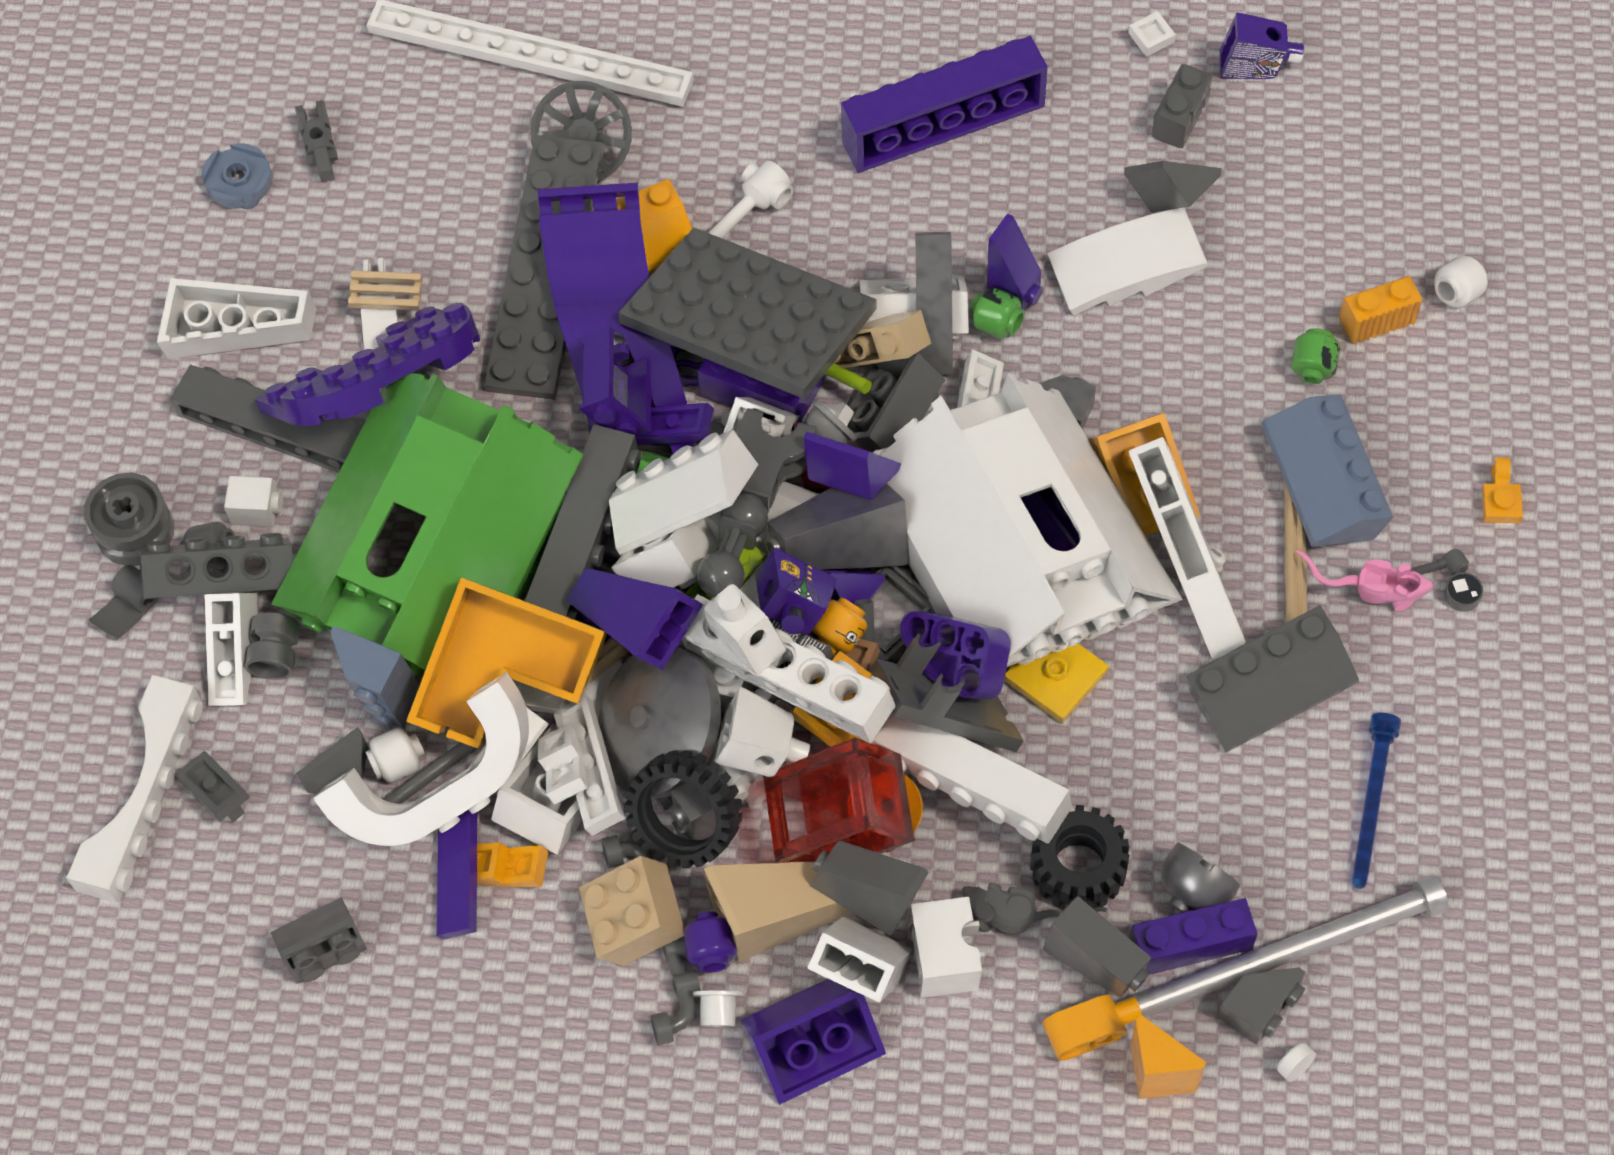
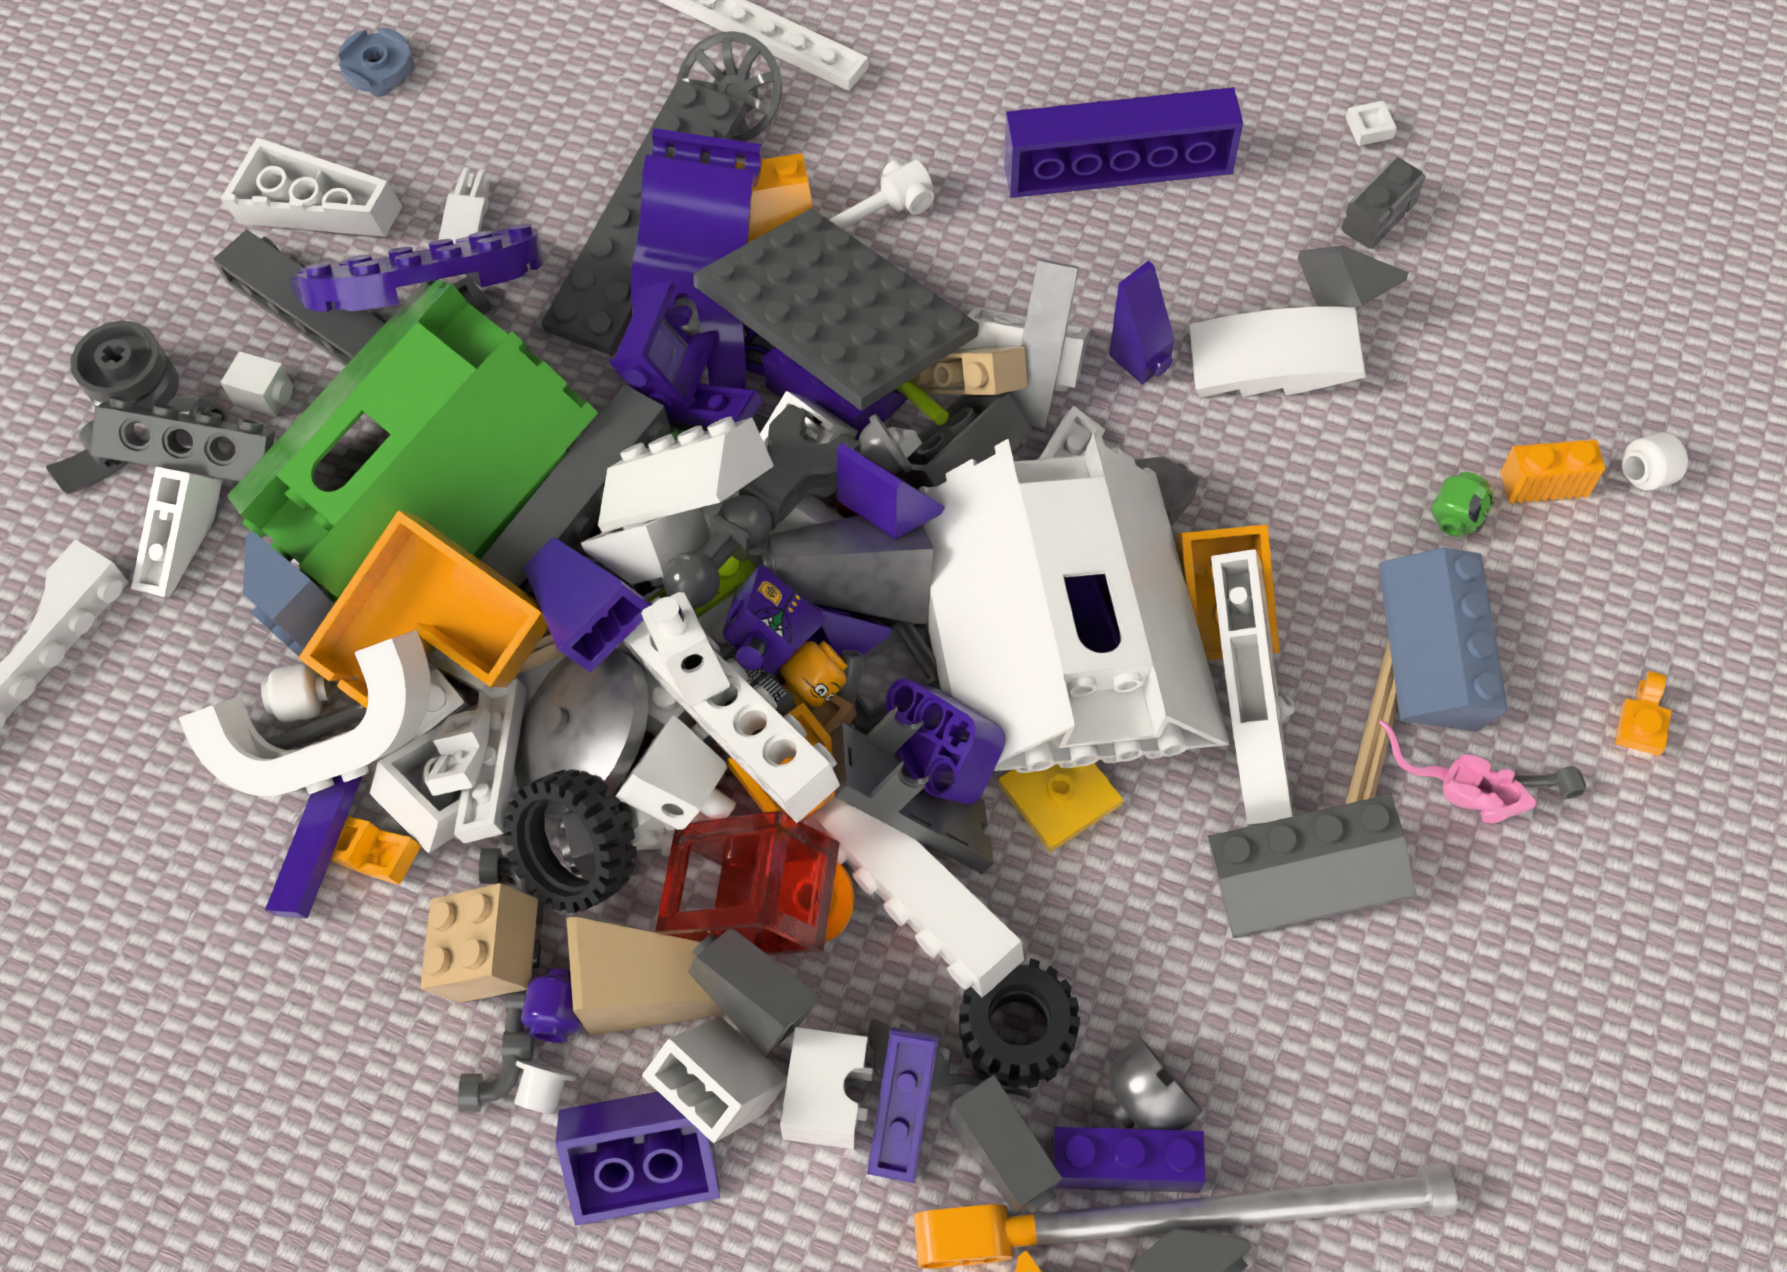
camera: 15 degrees right, 0 degrees up
(213, 787) = (93, 679): dark grey plate -> none
(271, 650) = (213, 543): flat silver wheel -> none
(318, 140) = (467, 43): dark grey hinge -> none
(318, 941) = (129, 881): dark grey slope -> none
(335, 761) = (231, 681): dark grey slope -> none
(386, 278) = (473, 187): tan tile -> none
(997, 313) = (1113, 373): bright green head -> none
(1010, 942) = (903, 1105): none -> dark purple tile
(1256, 48) = (1483, 160): dark purple torso -> none
(1384, 730) = (1431, 964): clear blue piece -> none
(1463, 591) = (1571, 820): tile -> none

